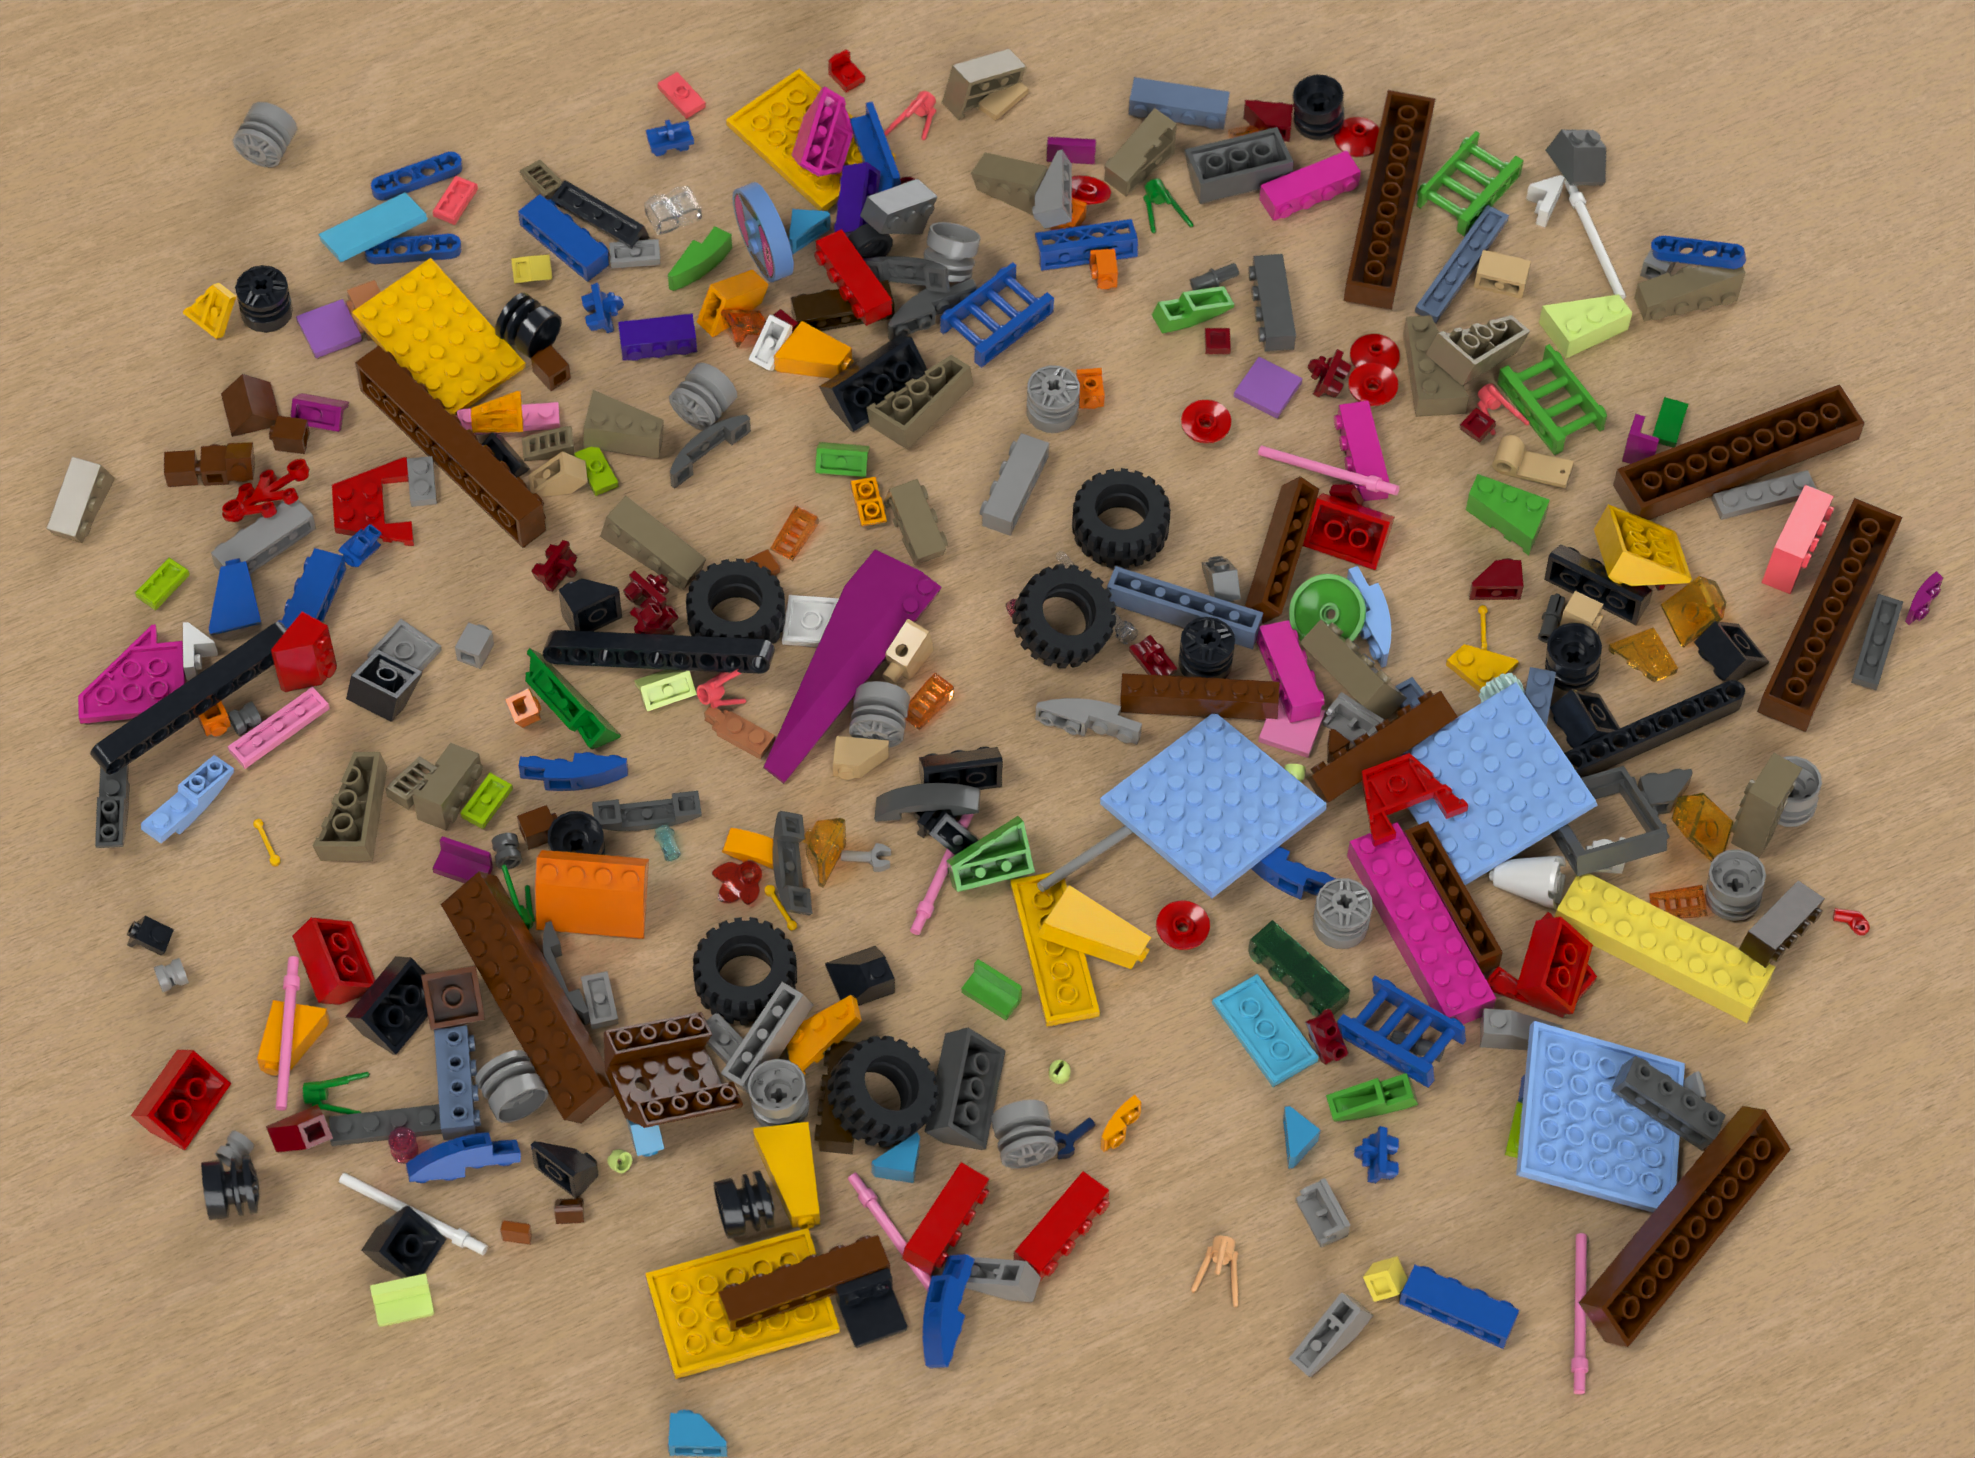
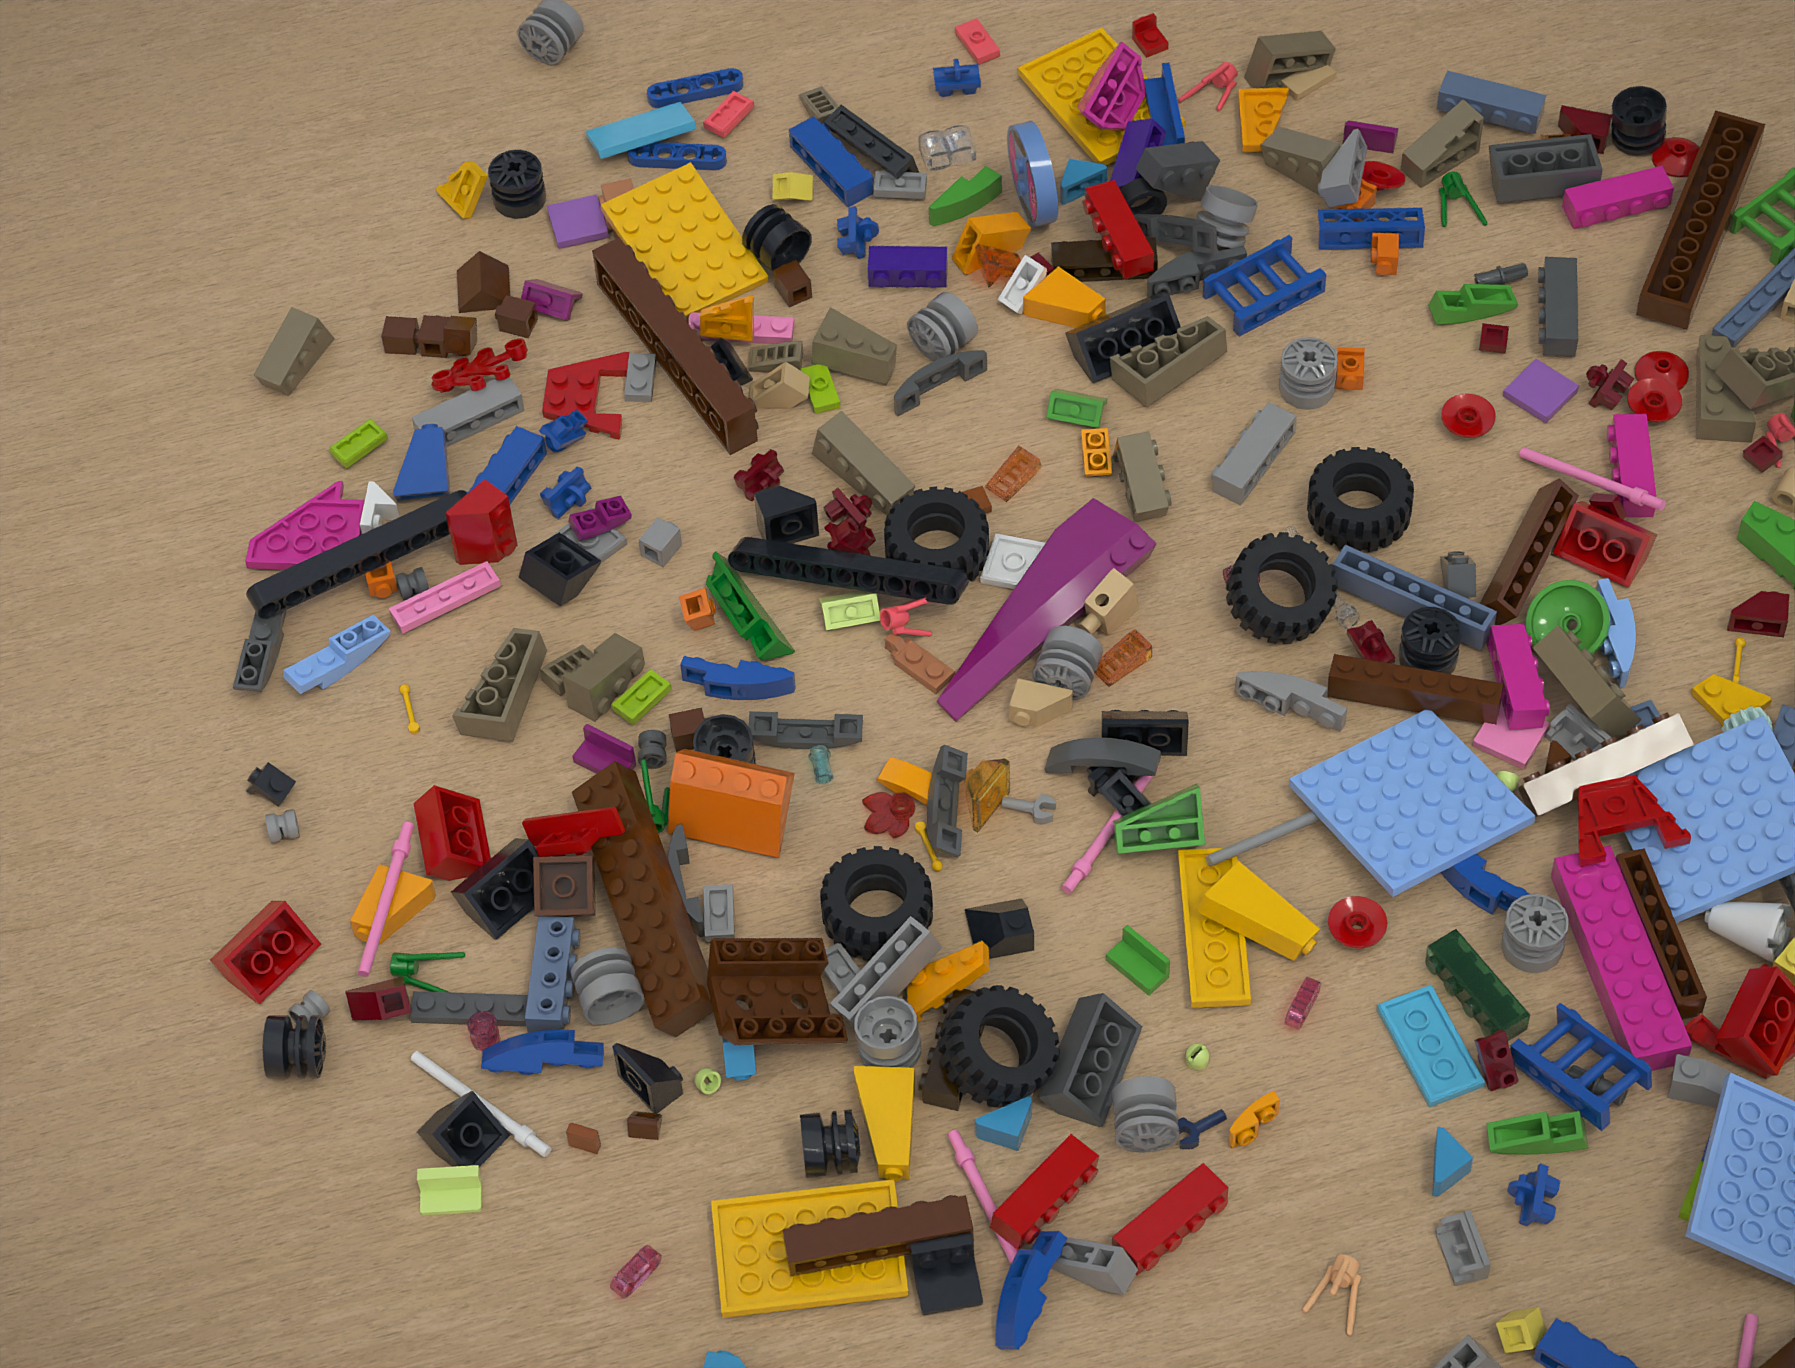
camera: 15 degrees right, 5 degrees down
(376, 608) = (569, 491): none -> blue hips
(416, 628) = (606, 516): none -> magenta slope
(450, 944) = (572, 831): none -> red bracket
(589, 1349) = (636, 1271): none -> clear pink beam
(963, 141) = (1259, 114): none -> light orange wing
(1146, 1008) = (1303, 1003): none -> clear pink beam

